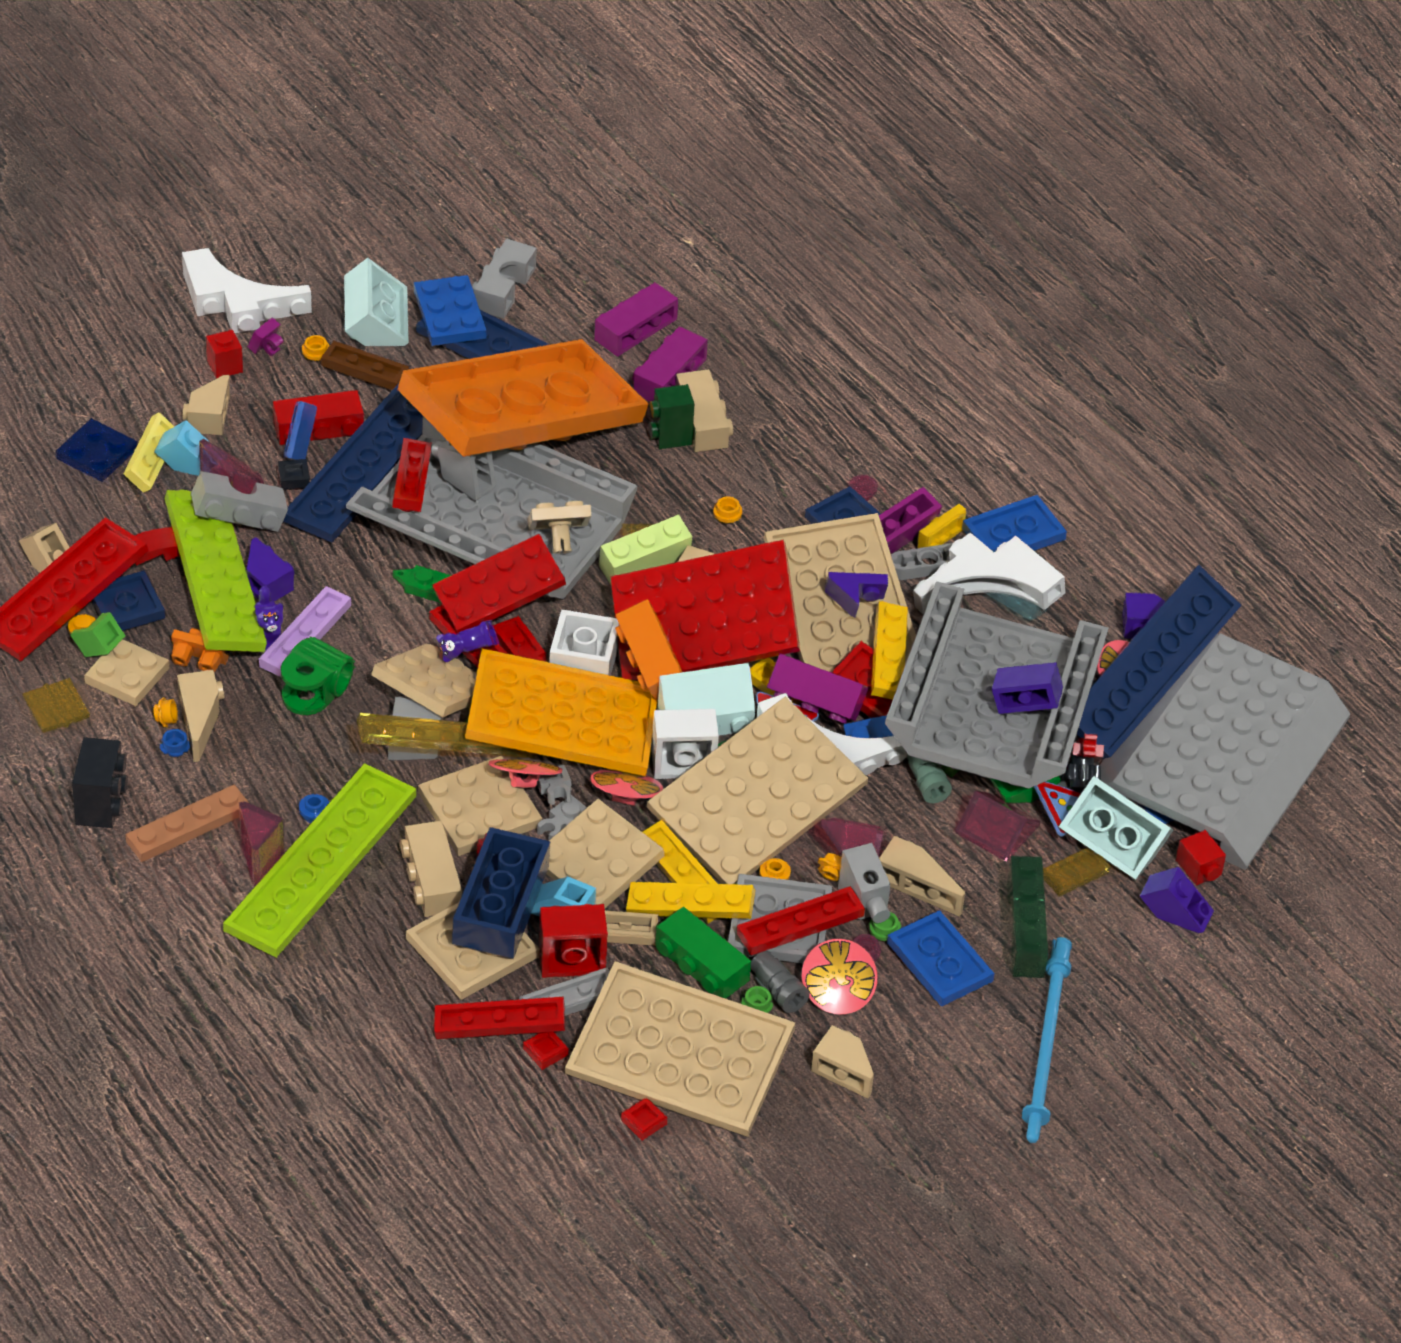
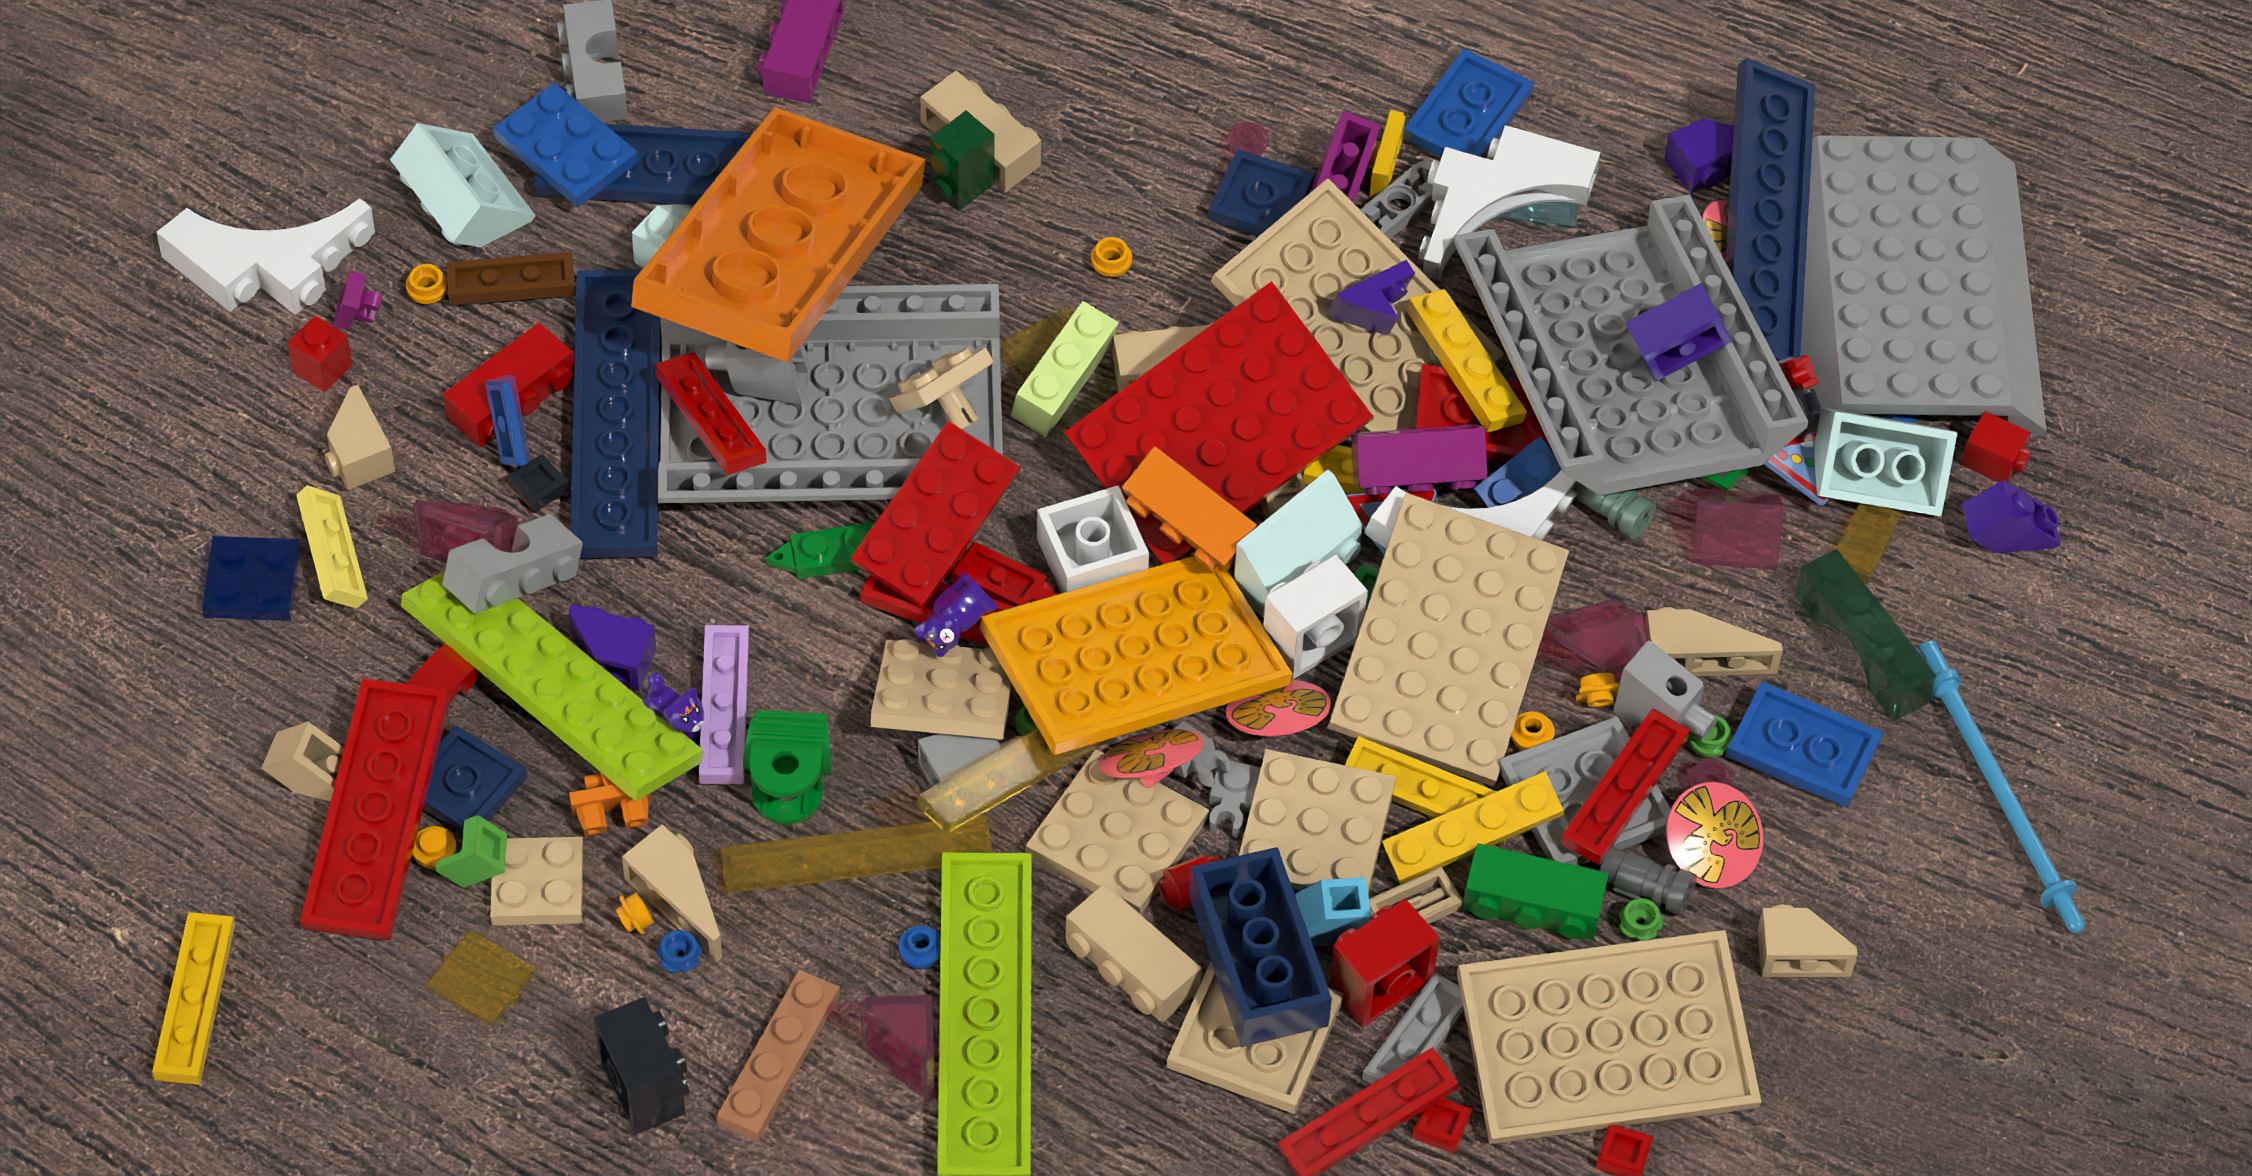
camera: 30 degrees left, 10 degrees up
(181, 448) = (375, 520): medium azure slope -> none
(314, 741) = (848, 854): none -> clear yellow tile
(679, 353) = (893, 86): magenta brick -> none

